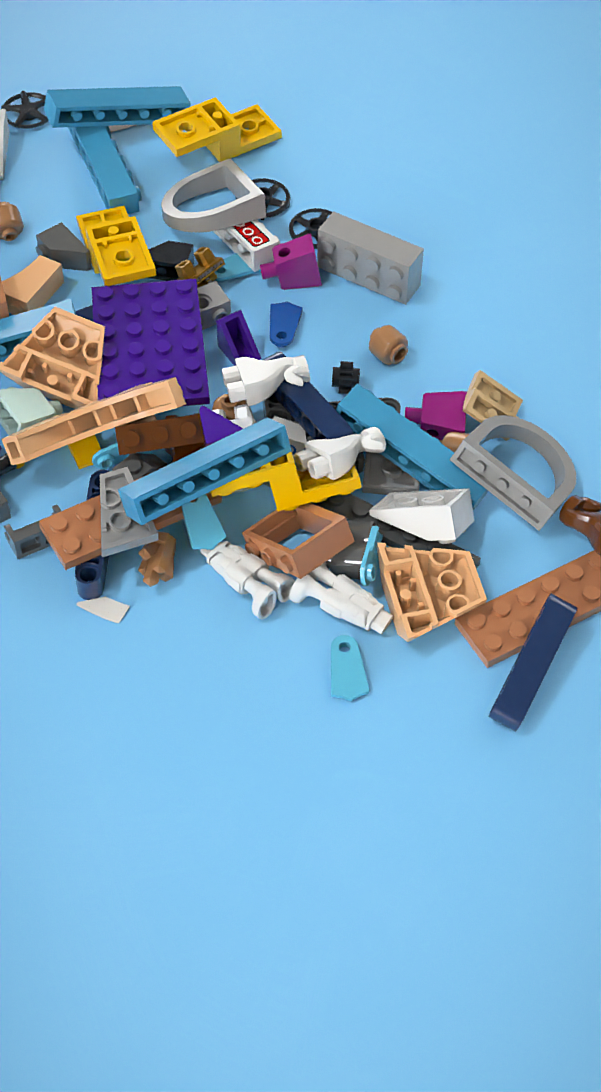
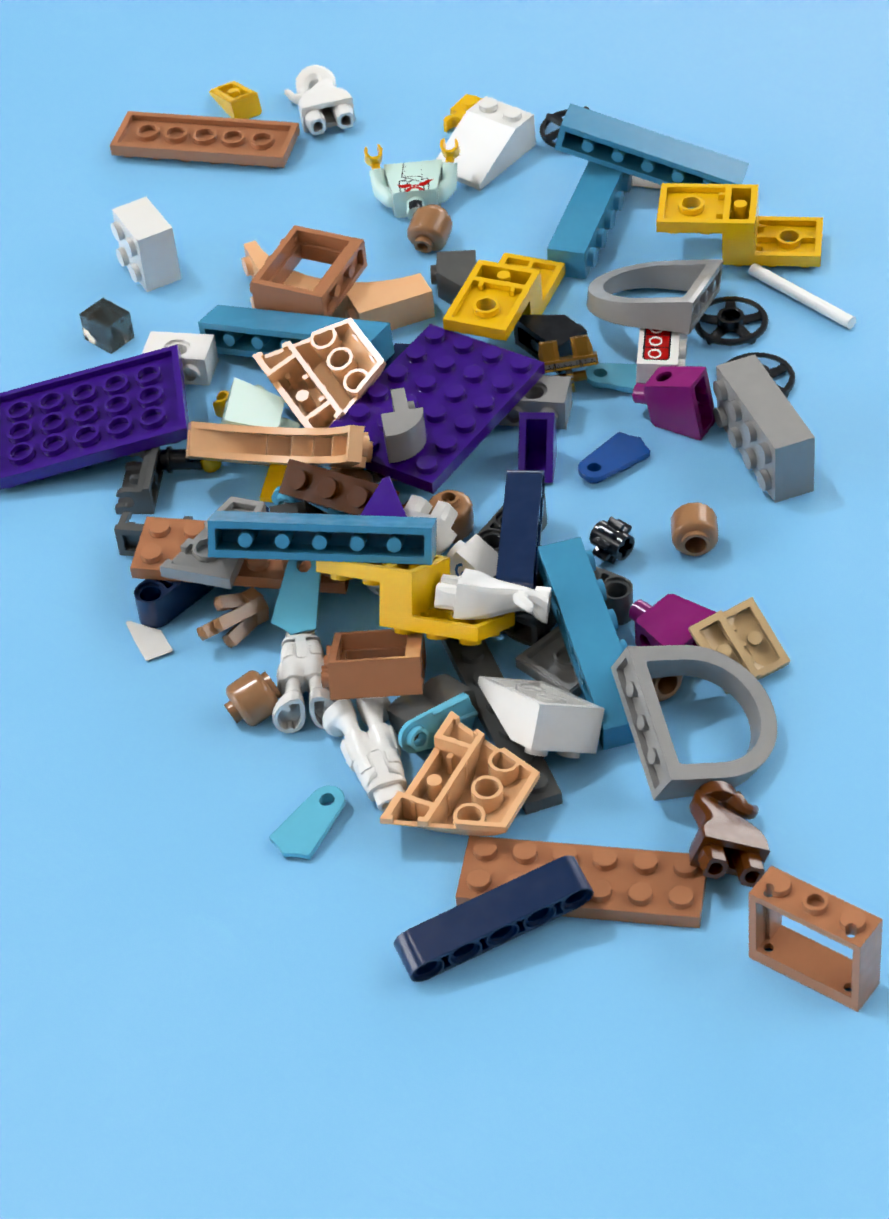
camera: 45 degrees right, 10 degrees down
(159, 363) = (403, 428): none -> light grey brick
(228, 607) = (252, 697): none -> medium nougat head
(258, 379) = (480, 480): white hips -> none
(289, 162) = (802, 296): none -> white bar

